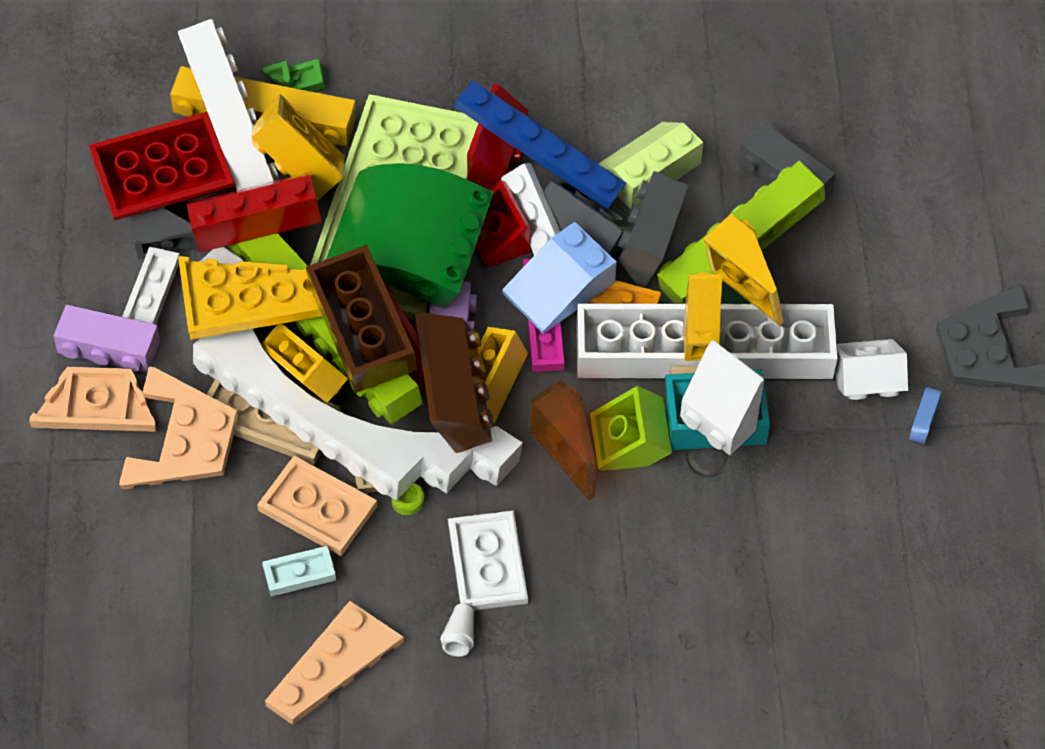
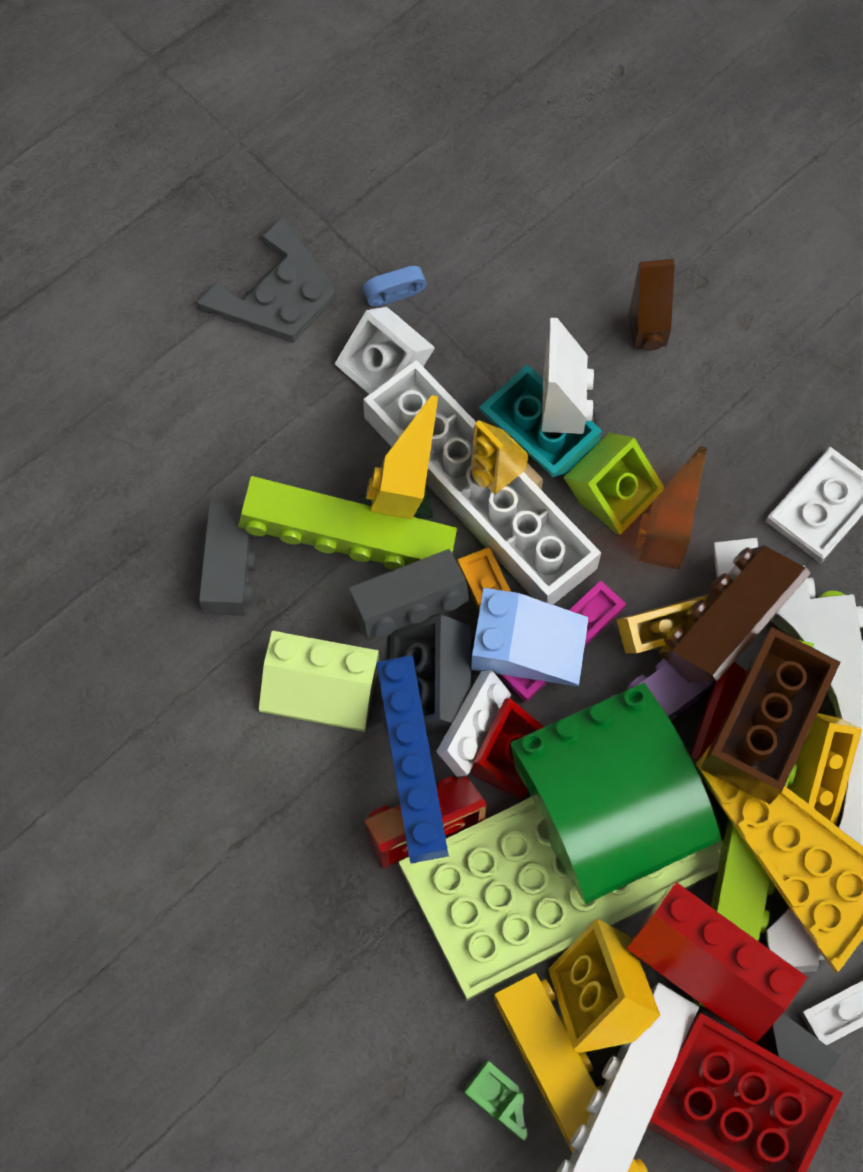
camera: 130 degrees left, 10 degrees up
(746, 550) = (652, 304): none -> reddish brown slope

